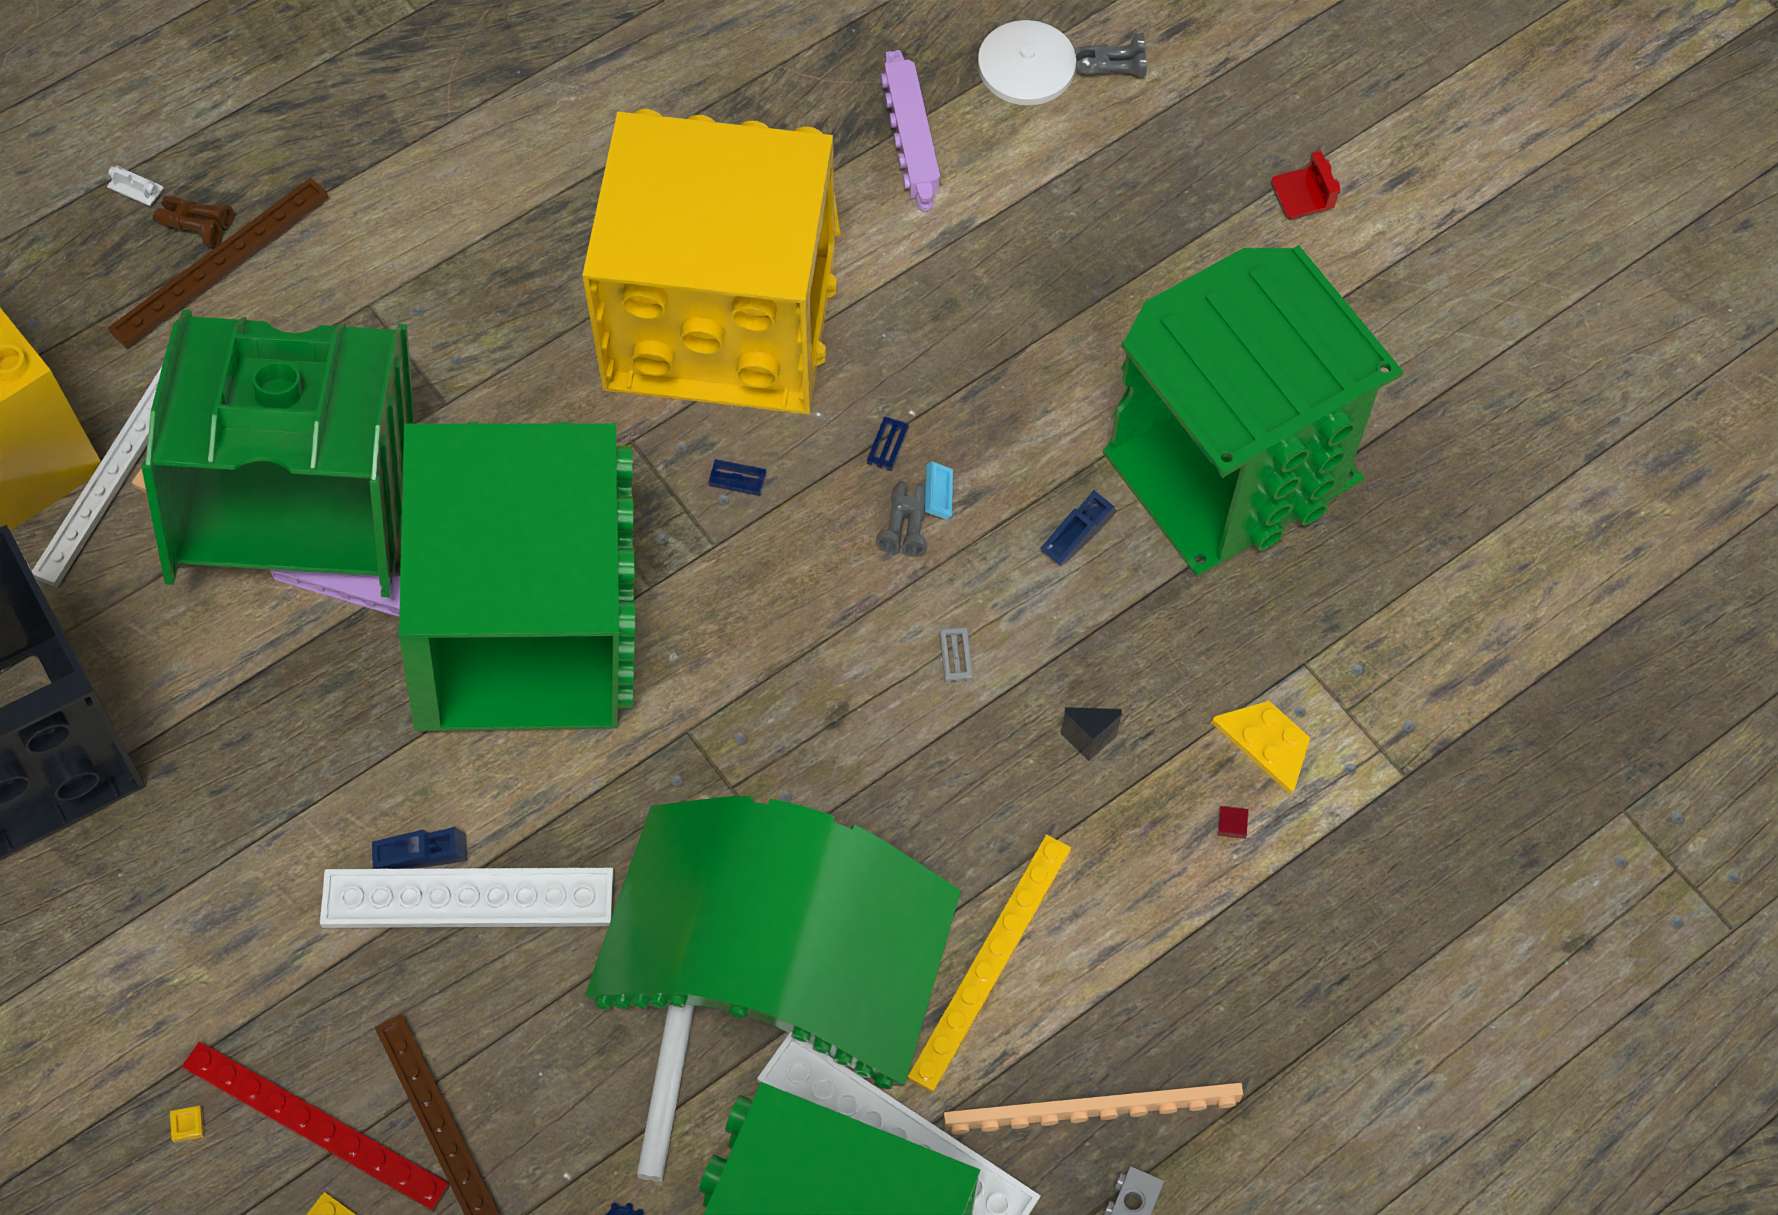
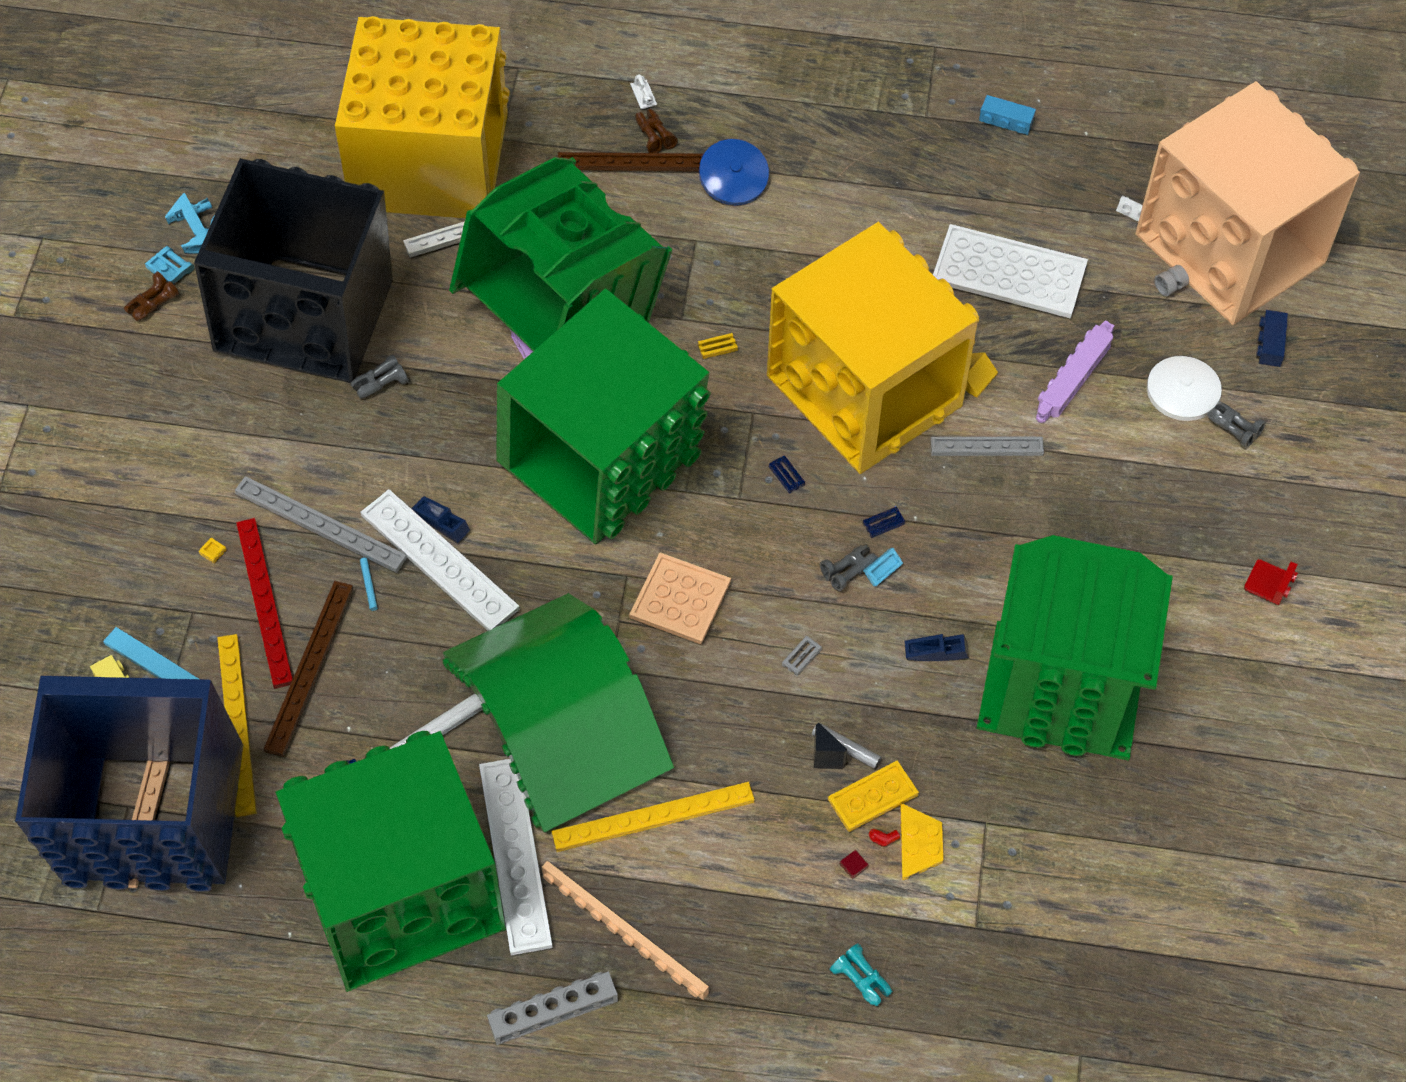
camera: 45 degrees right, 5 degrees down
(175, 768) = (368, 384): none -> dark grey piece
(283, 979) = (321, 524): none -> light grey plate
(335, 195) = (733, 172): none -> blue dish
(414, 996) = (368, 584): none -> medium azure bar
(513, 390) = (716, 344): none -> yellow tile
(741, 70) = (1010, 270): none -> white plate
(771, 705) = (680, 598): none -> light nougat plate
(903, 278) = (986, 446): none -> light grey tile
(1126, 701) = (855, 750): none -> light grey piece
(1178, 735) = (873, 796): none -> yellow plate
(1231, 770) = (882, 838): none -> red arm
(1335, 934) = (865, 984): none -> teal piece

